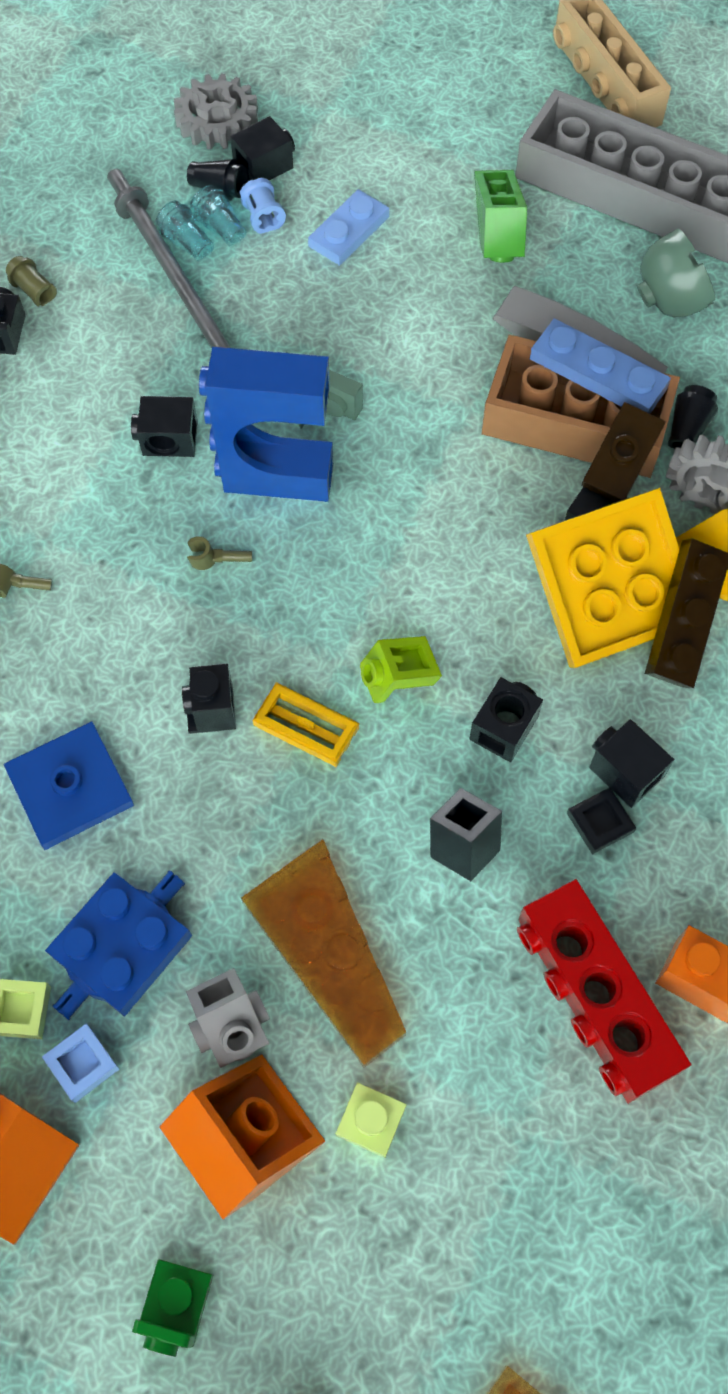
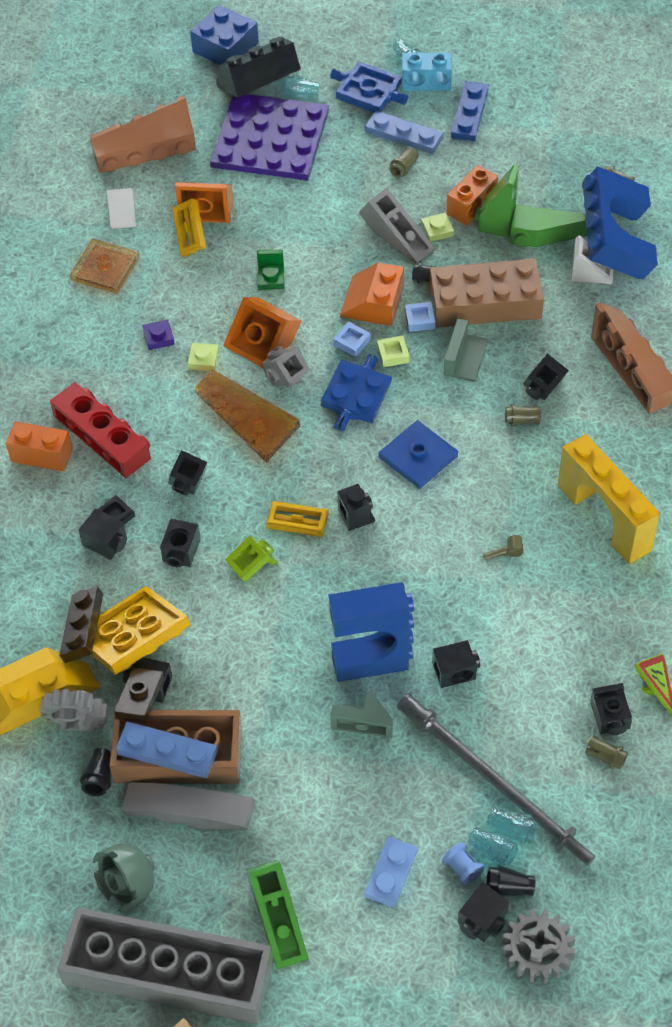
camera: 165 degrees right, 10 degrees down
(445, 1208) = (158, 334): none -> dark purple plate

